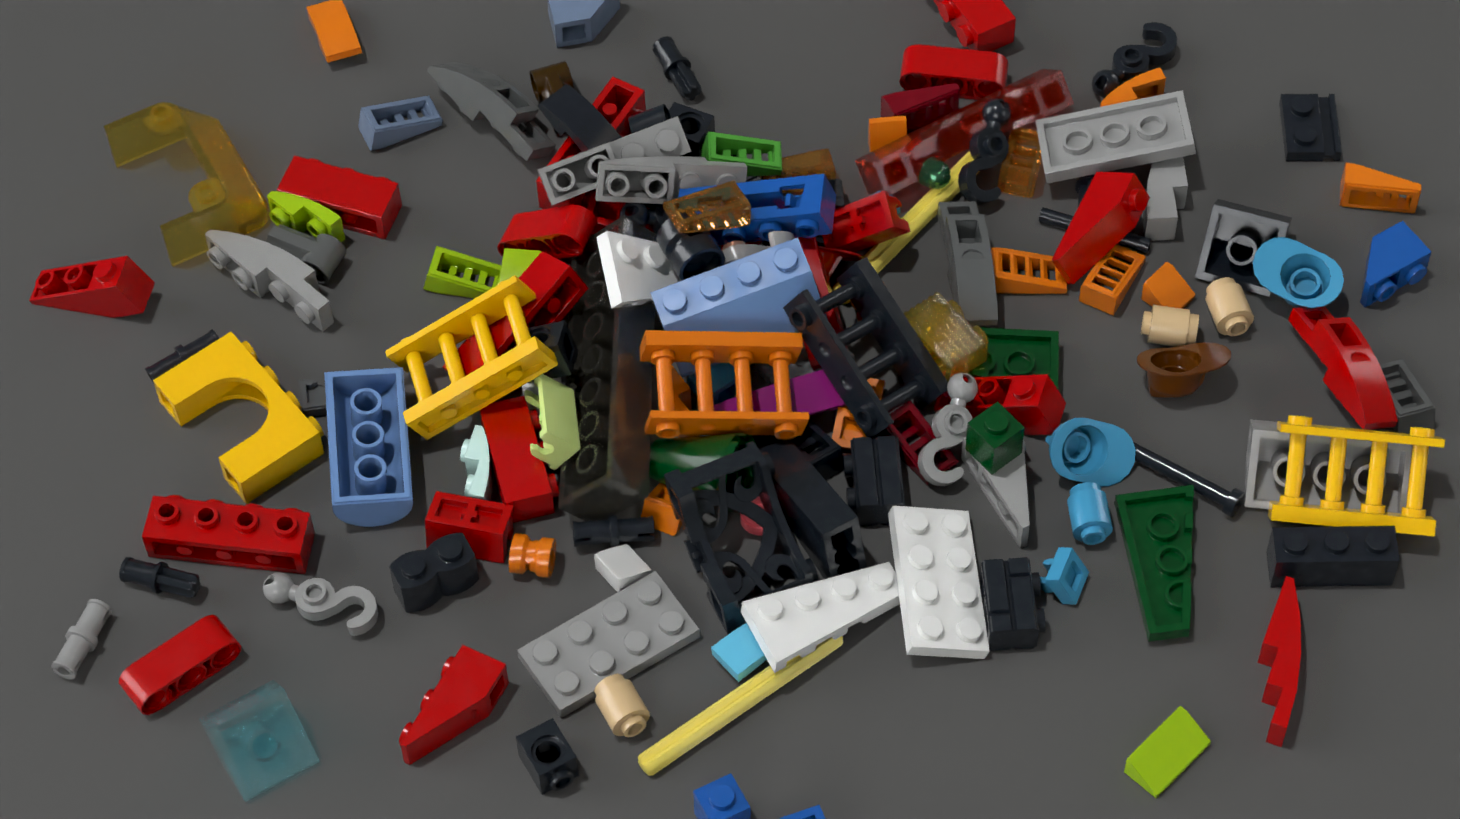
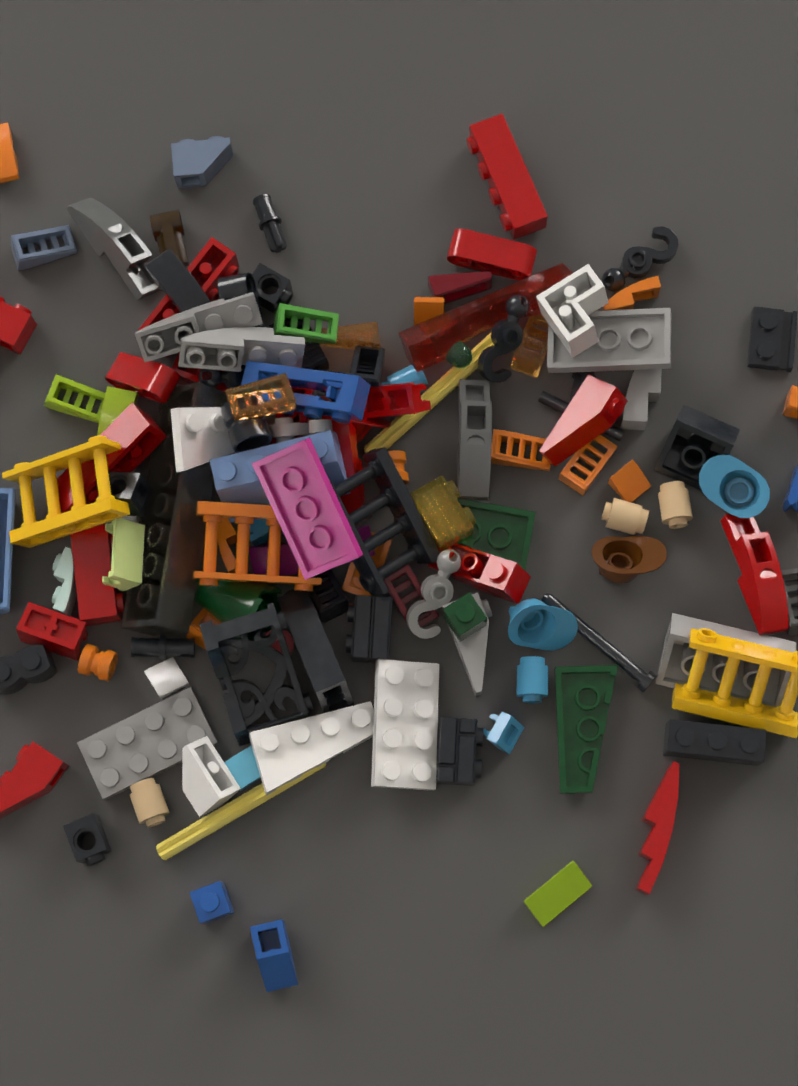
camera: 10 degrees right, 20 degrees up
(693, 665) = (206, 777): none -> white slope
(783, 322) = (307, 508): none -> dark pink plate
(1065, 100) = (568, 307): none -> white brick

